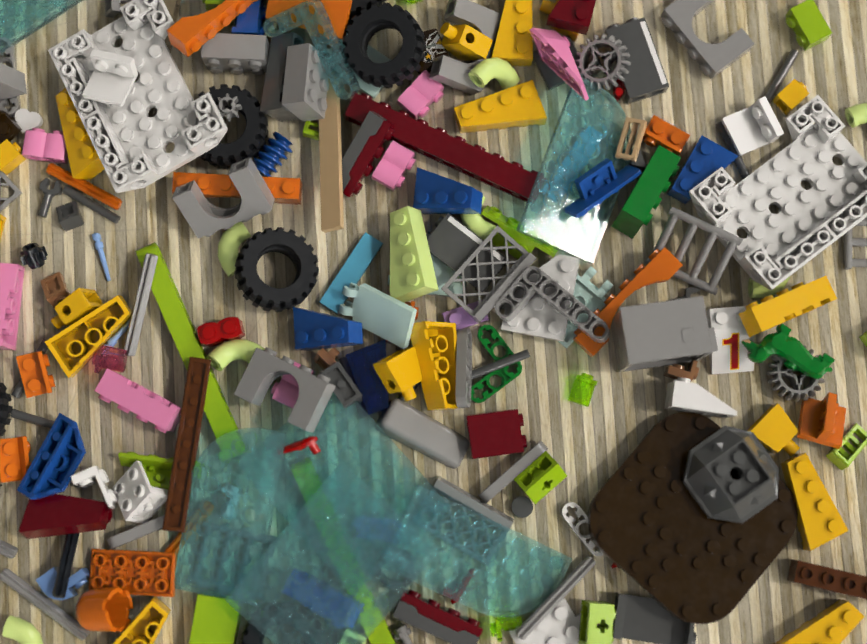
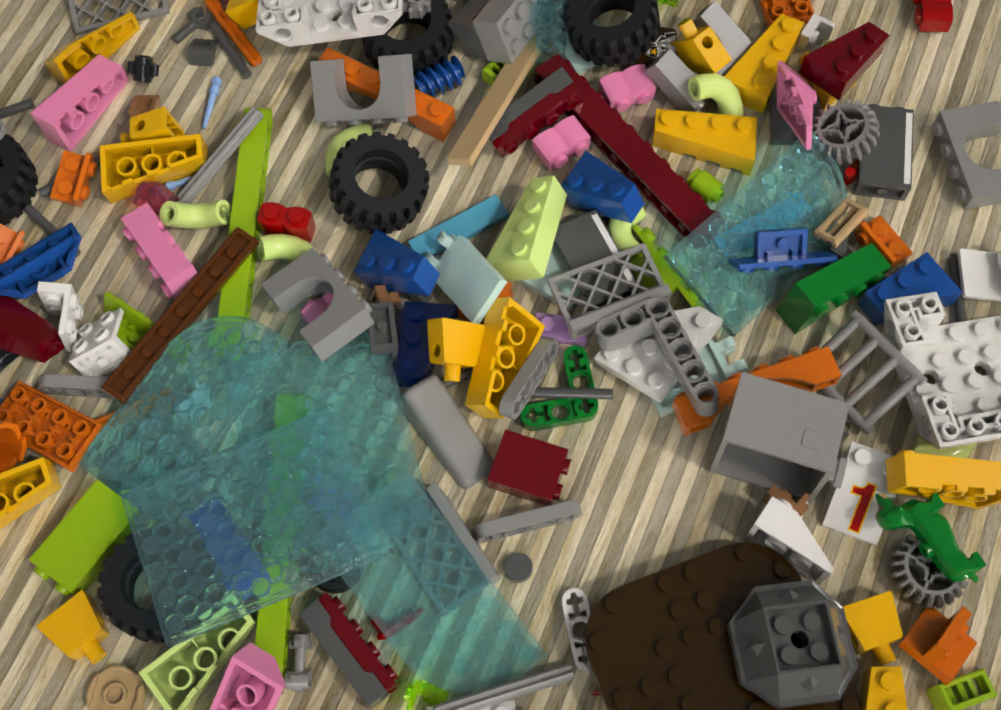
camera: 30 degrees right, 15 degrees down
(149, 358) = (195, 215): none -> yellowish green cylinder
(303, 443) = (311, 369): red bar -> none
(518, 152) = (706, 185): none -> lime brick
(540, 477) = (556, 540): lime brick -> none
(582, 389) = (656, 468): clear neon green bracket -> none

